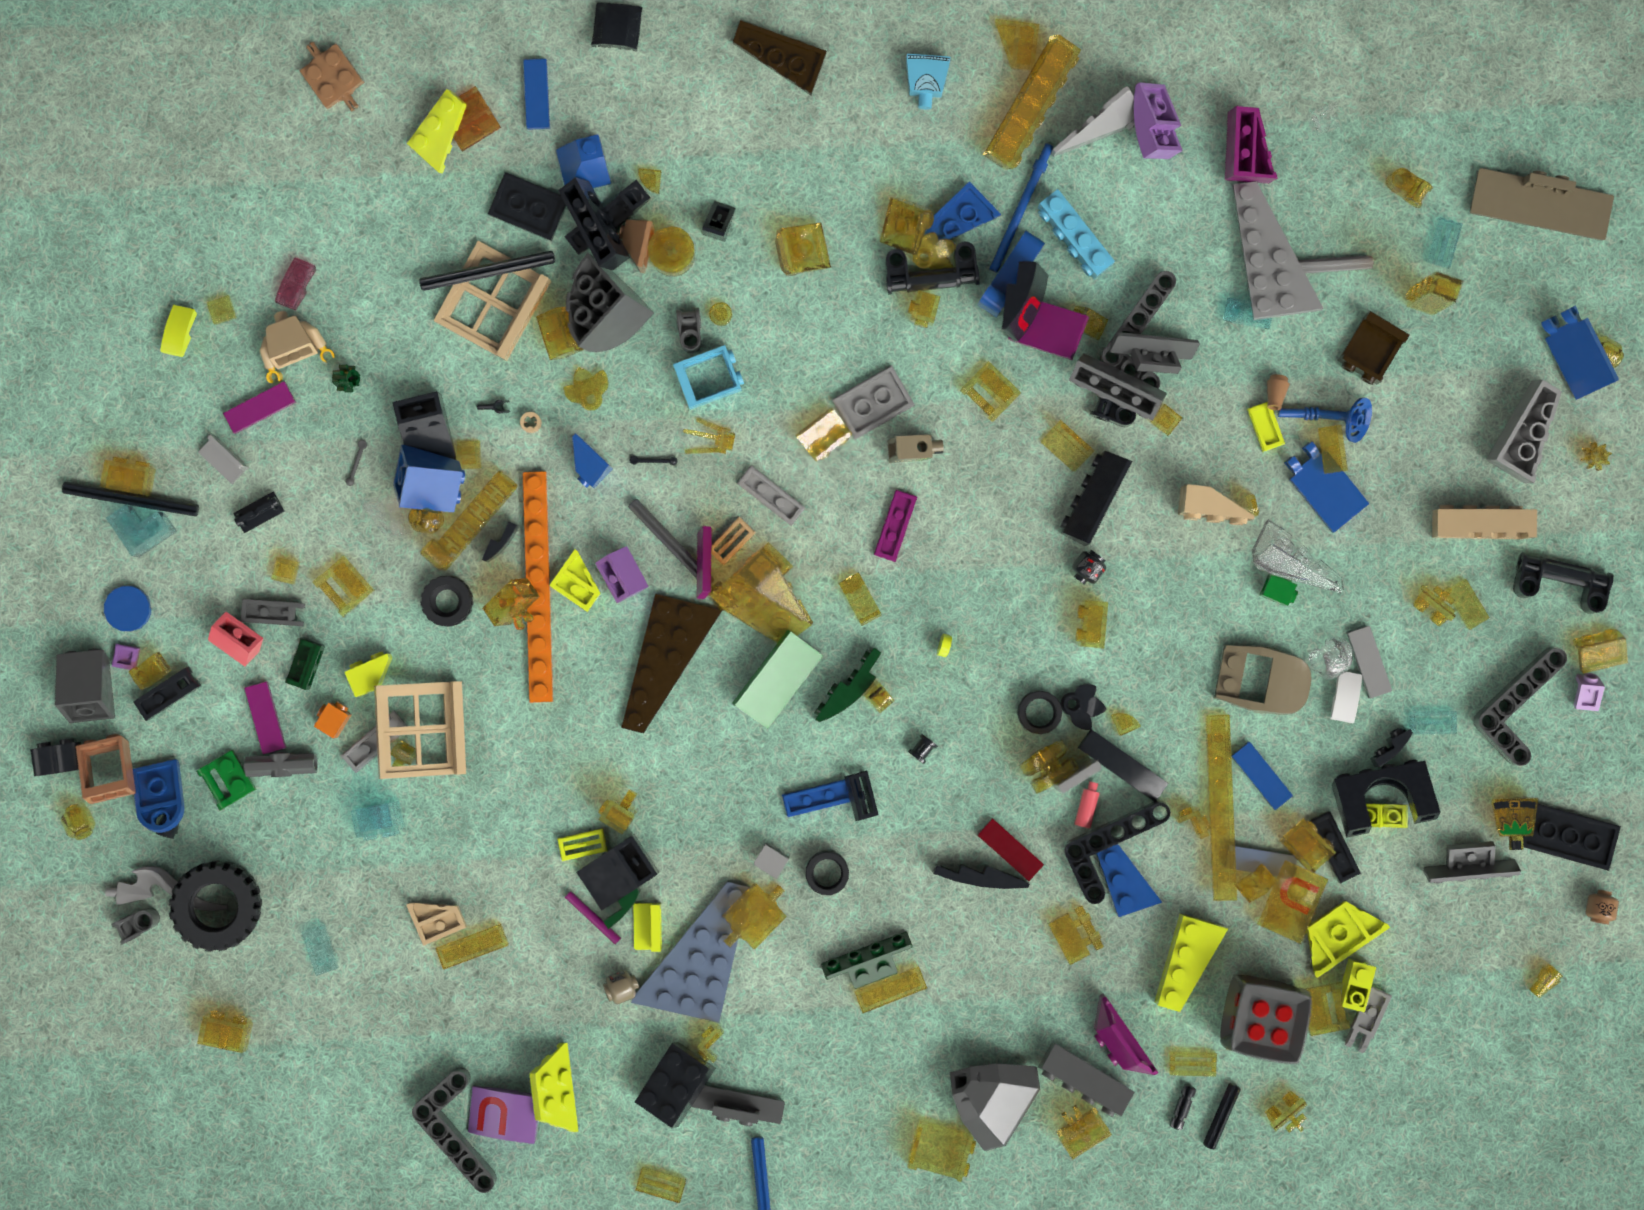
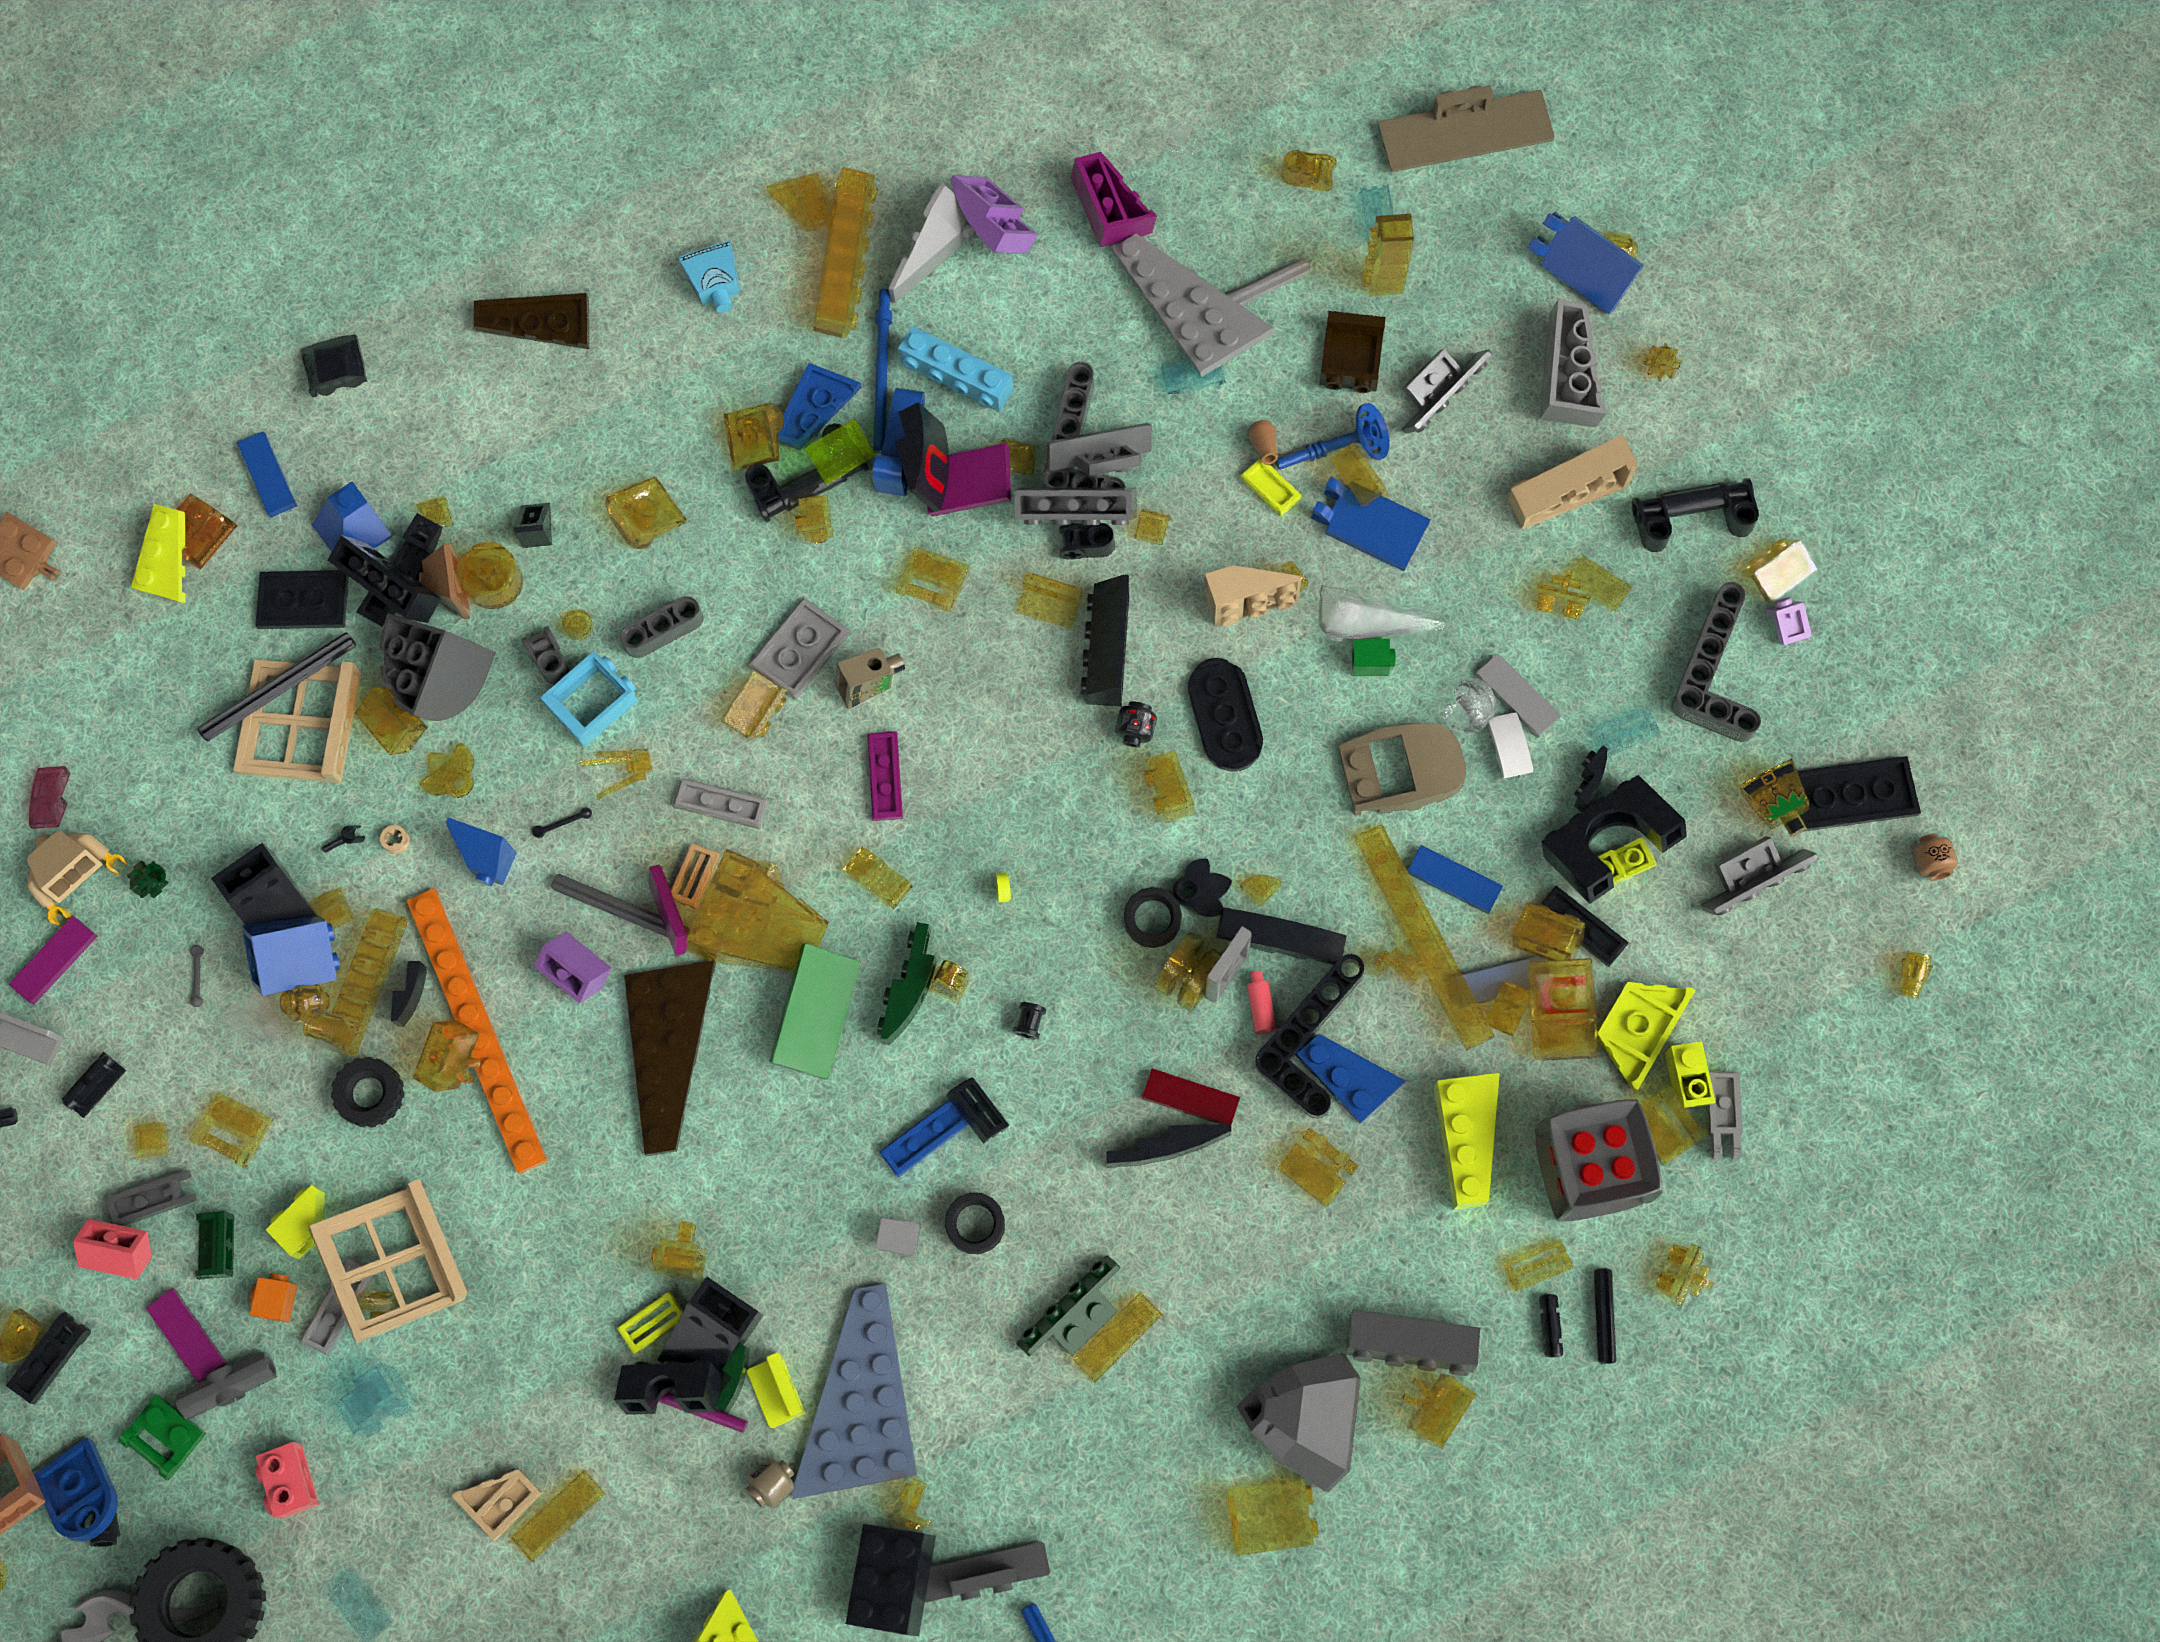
camera: 15 degrees left, 15 degrees down
(300, 847) = (286, 1480): none -> coral brick
(561, 887) = (644, 1384): none -> black arch
(576, 582) = (521, 1003): neon yellow wing -> none
(754, 916) = (904, 1316): clear yellow plate -> none
(770, 339) = (670, 614): none -> dark grey beam
(937, 252) = (793, 448): clear yellow plate -> none
(963, 268) = (840, 451): none -> clear neon green plate
(1119, 1040) = (1432, 1273): magenta wedge -> none
(1155, 585) = (1225, 714): none -> black tile
(1423, 402) = (1437, 383): none -> bracket

